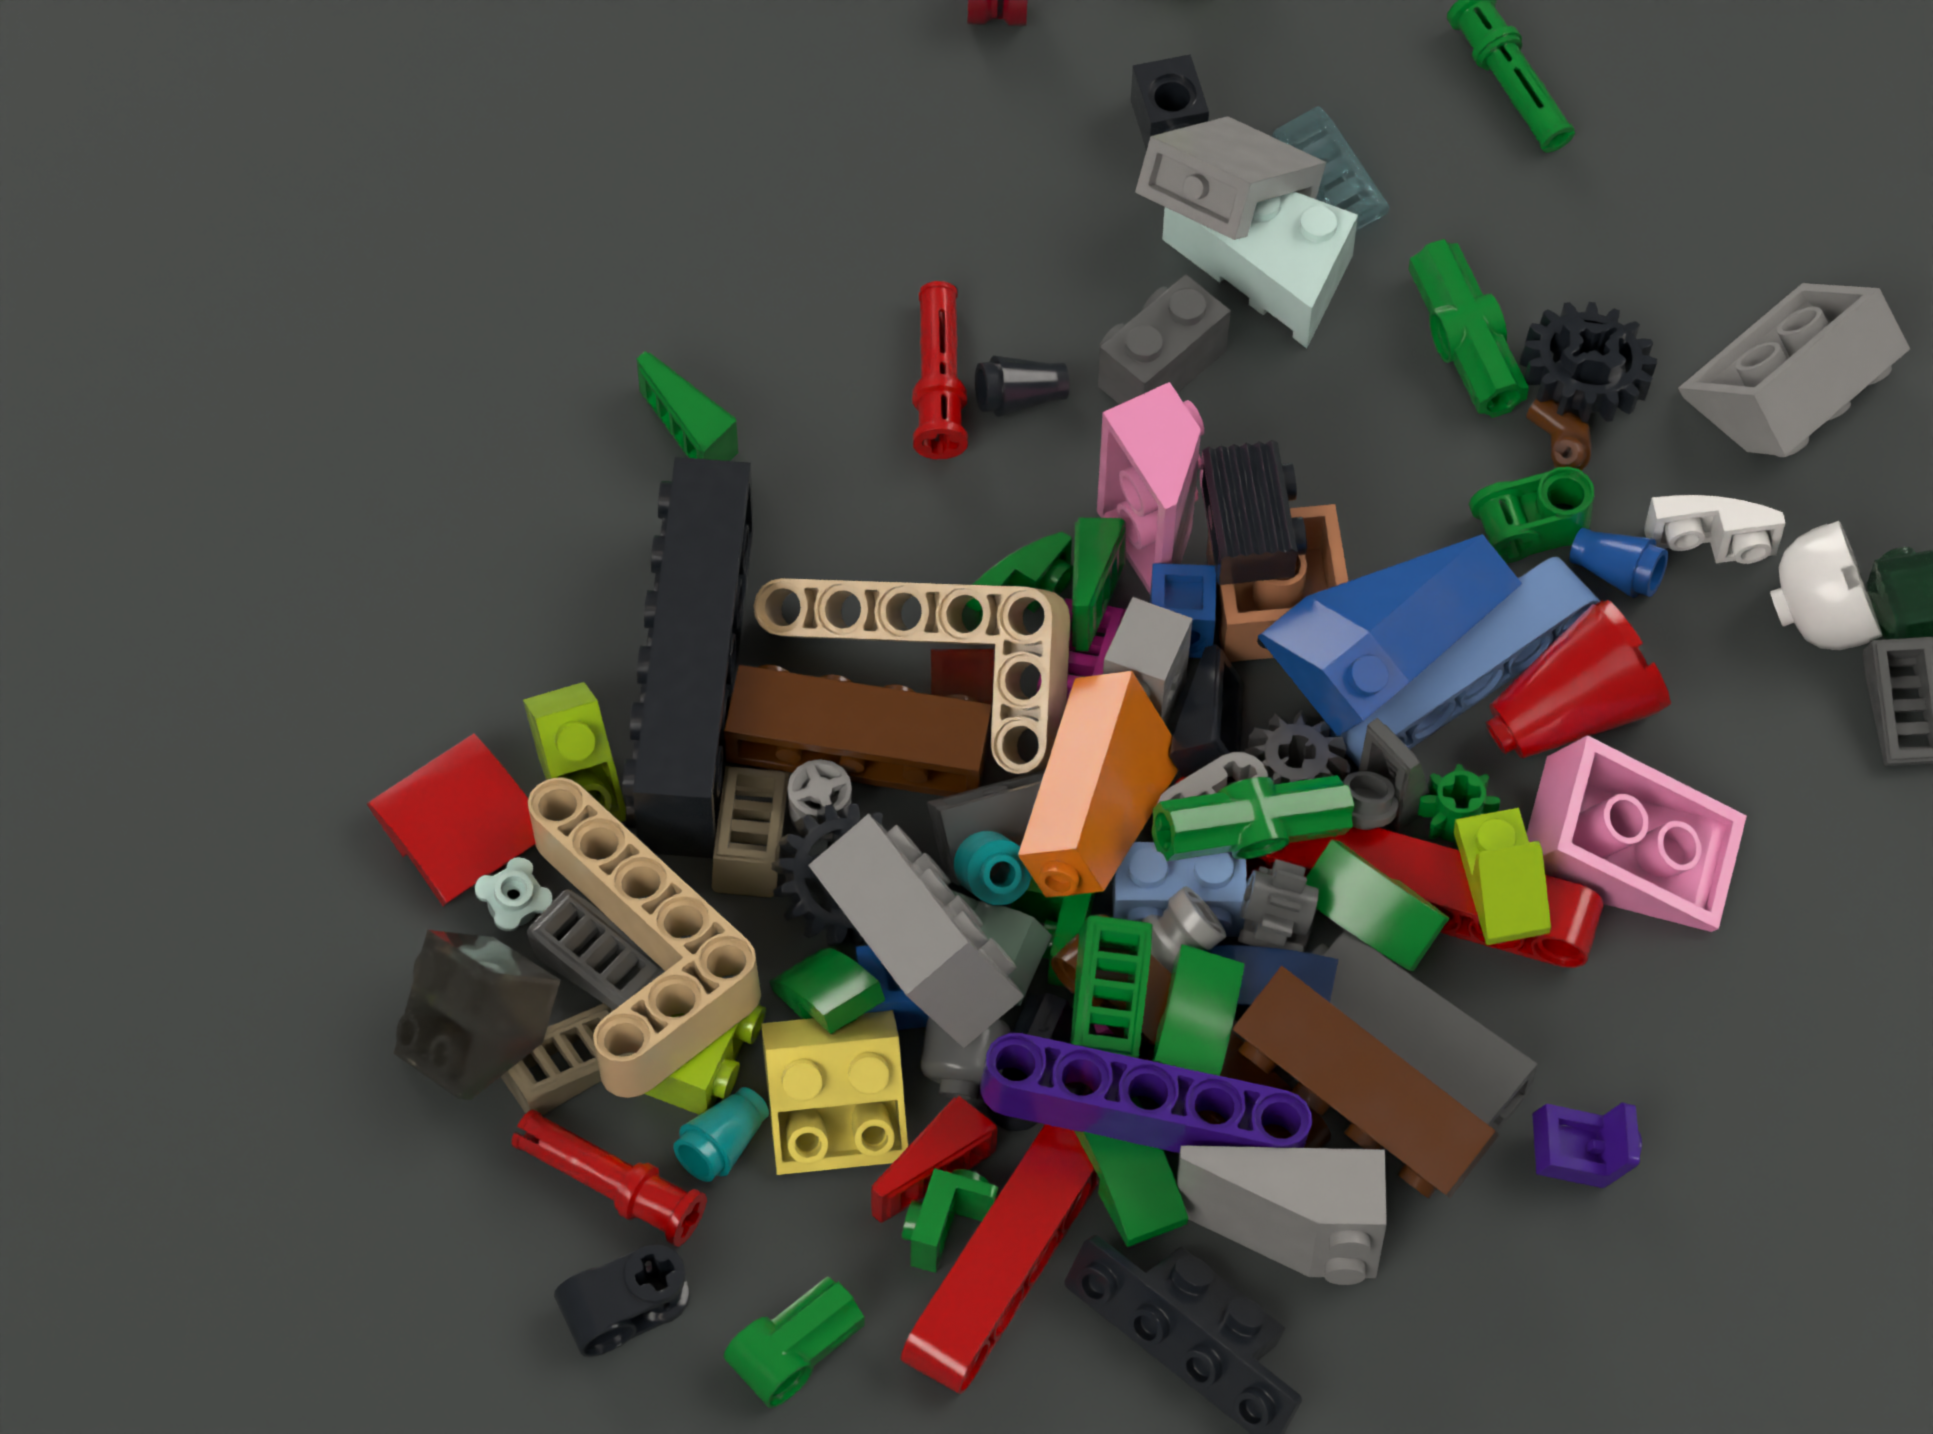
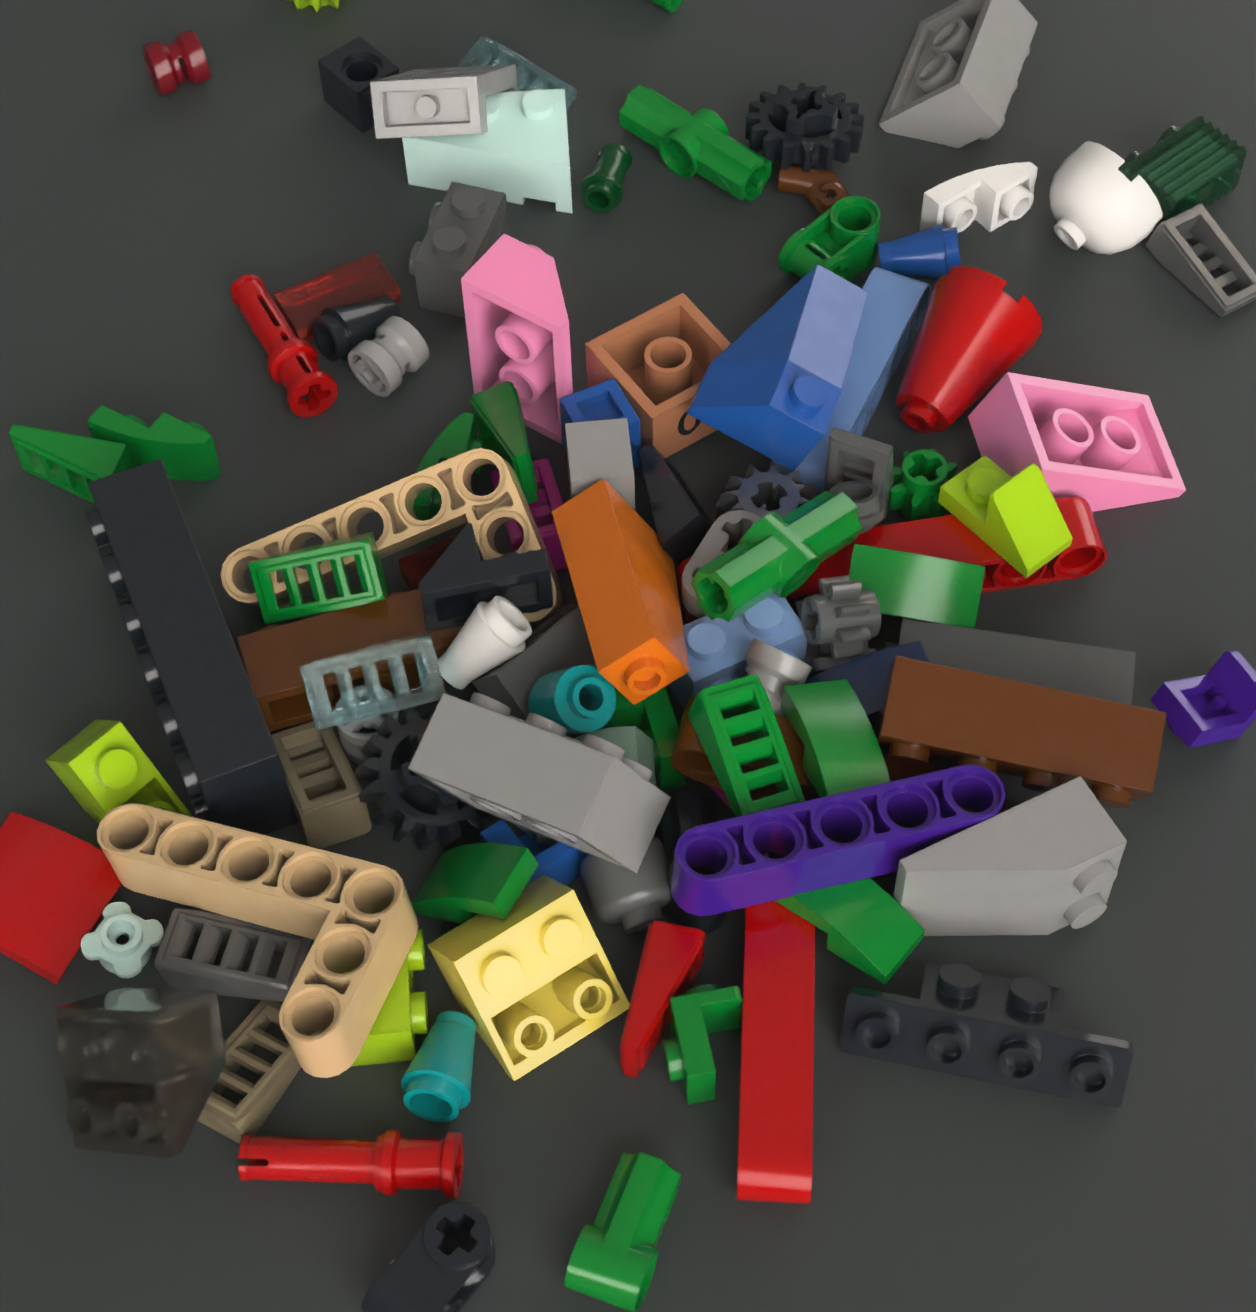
camera: 25 degrees left, 5 degrees down
(770, 434) = (183, 446): none -> green slope
(885, 749) = (427, 666): none -> clear light blue slope
(886, 649) = (368, 565): none -> green slope
(951, 774) = (486, 640): none -> white cone
(958, 719) = (463, 580): none -> black slope
(1022, 334) = (346, 284): none -> clear red tile
(1026, 434) = (388, 356): none -> light grey wheel
(1250, 512) = (624, 320): black brick -> none
(1346, 338) = (603, 187): none -> dark green pin

